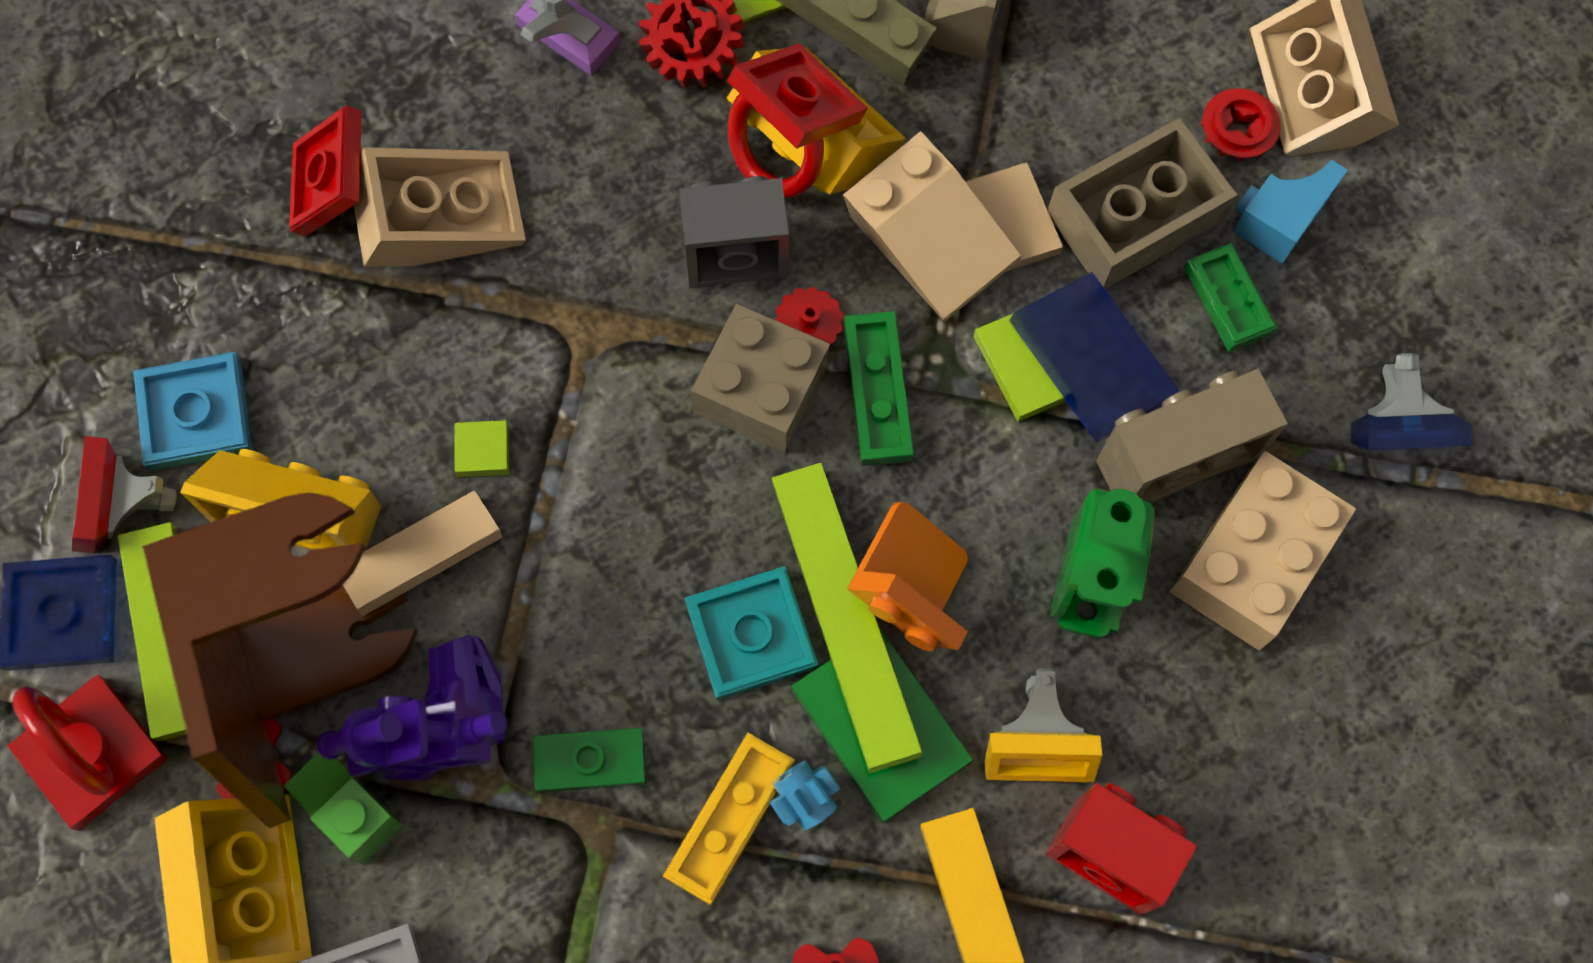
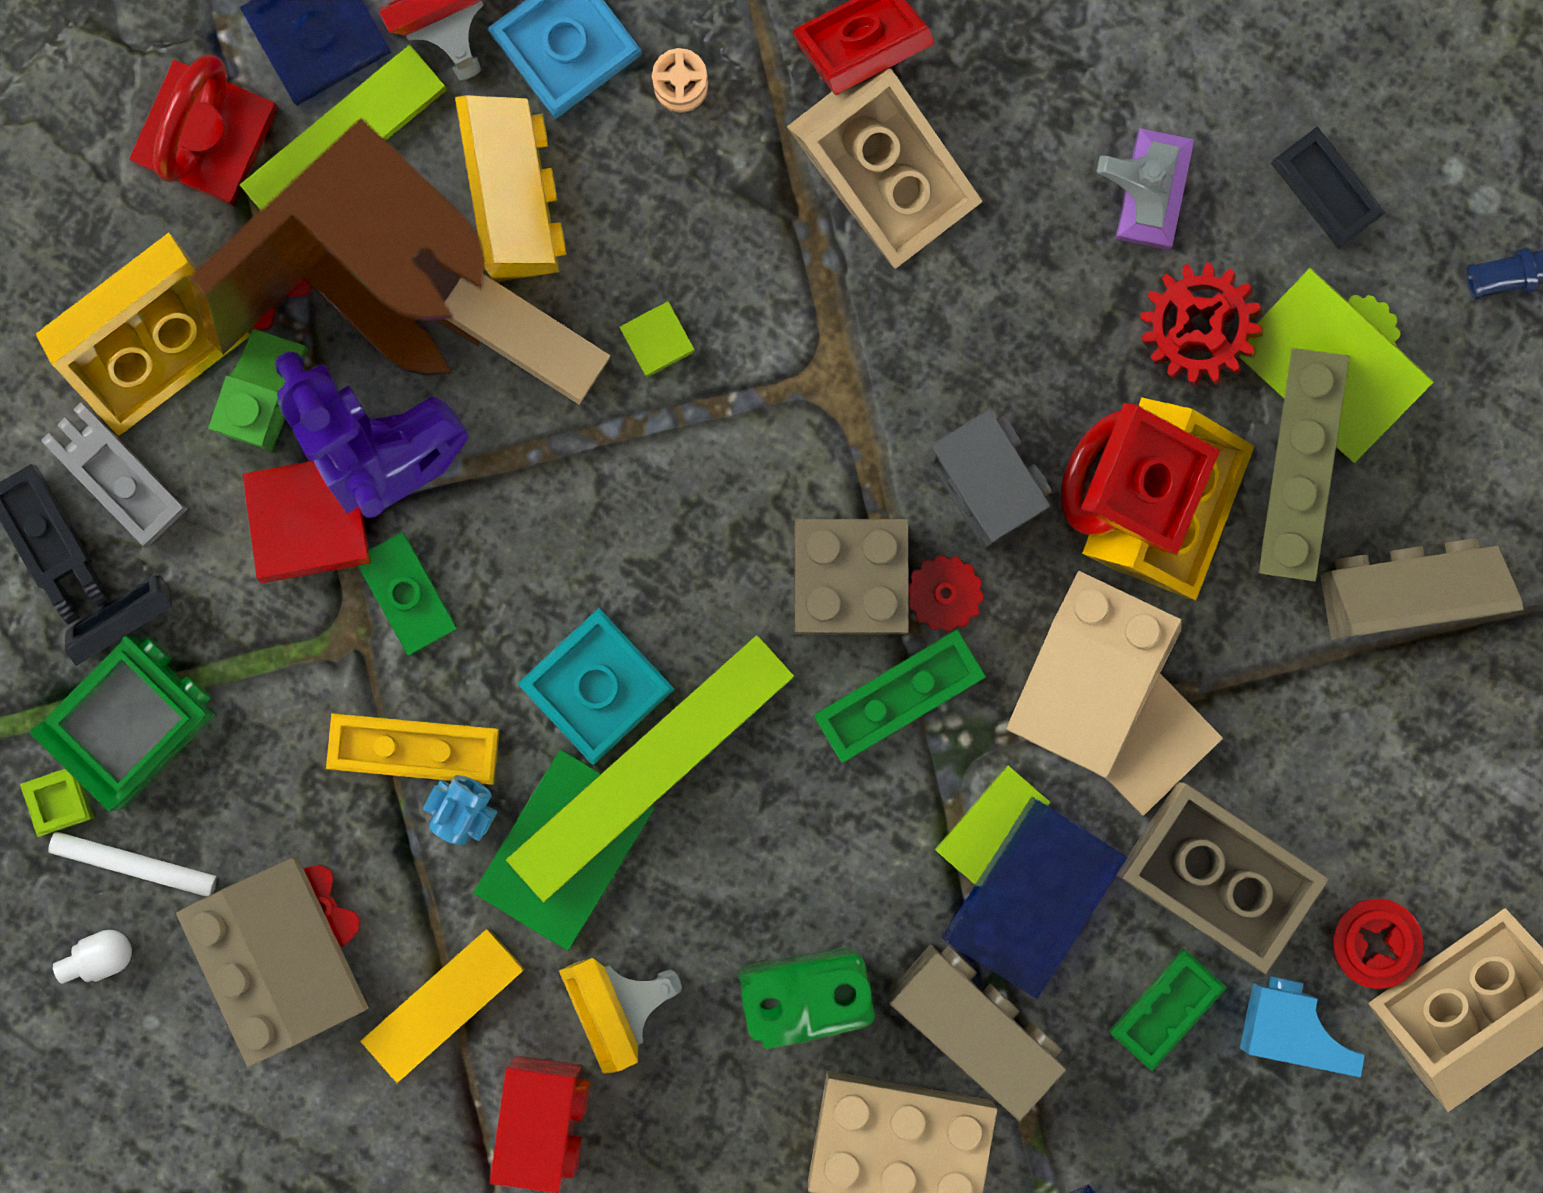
camera: 70 degrees right, 15 degrees up
(273, 320) = (679, 68): none -> light nougat wheel
(478, 819) = (300, 524): none -> red tile
(911, 577) = (711, 816): orange bracket -> none

